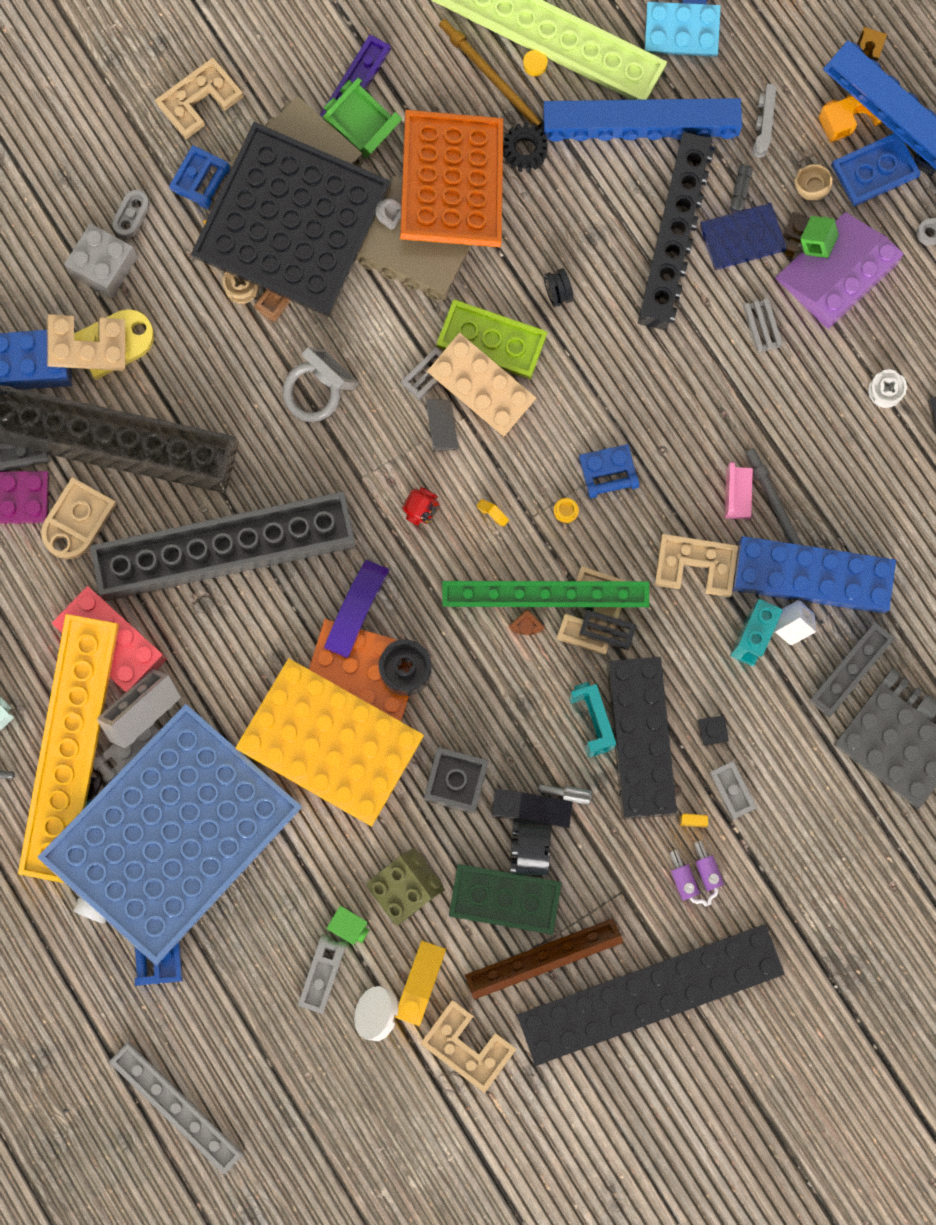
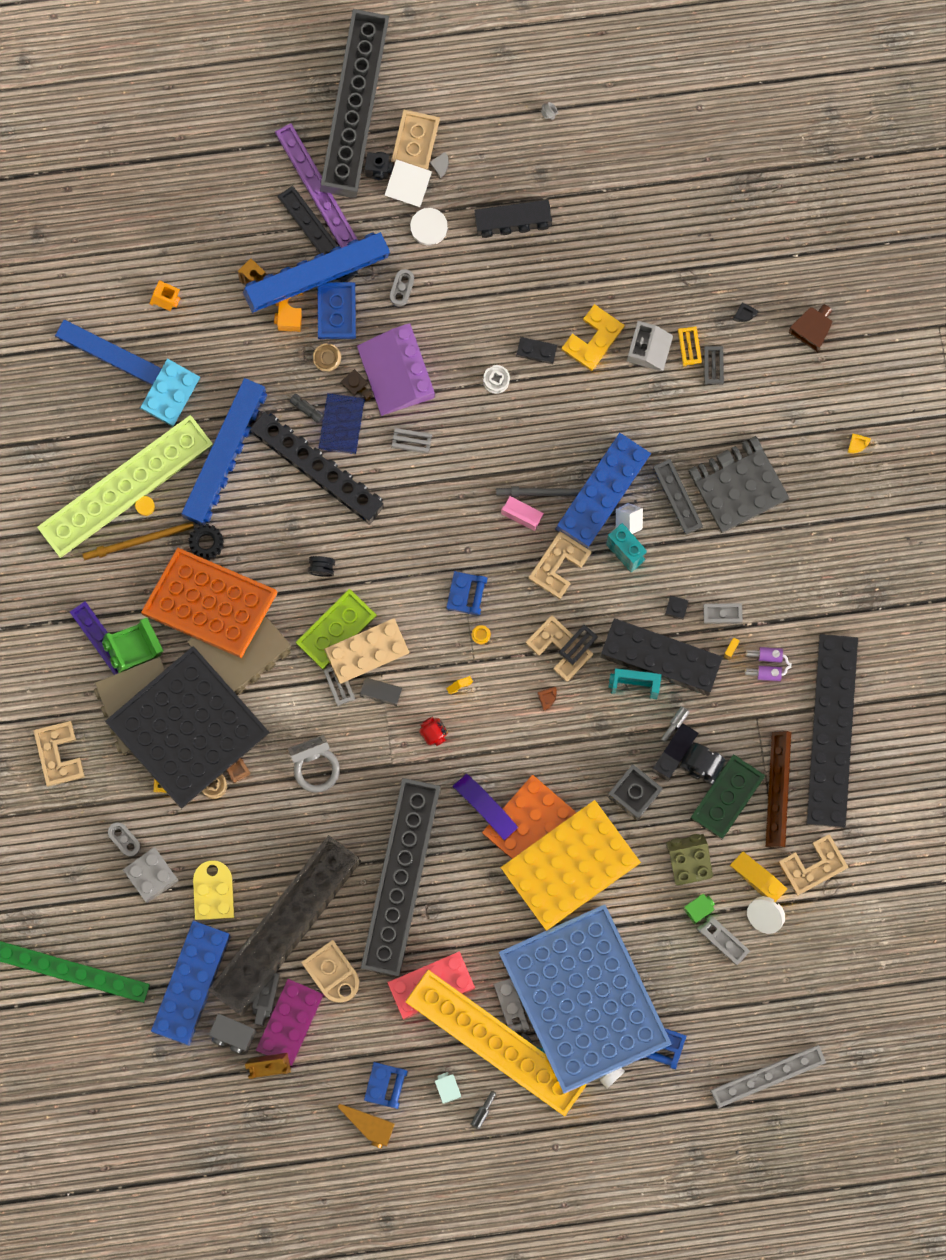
camera: 65 degrees left, 0 degrees up
(68, 353) = (224, 900): tan plate -> none
(138, 708) = (489, 983): light grey brick -> none
(193, 172) = (113, 781): blue plate -> none
(388, 212) = (215, 657): light grey tile -> none
(405, 652) = (554, 785): black brick -> none
(545, 593) = (534, 675): green plate -> none
(764, 121) = (267, 369): light grey plate -> none
(819, 236) = (369, 372): bright green brick -> none

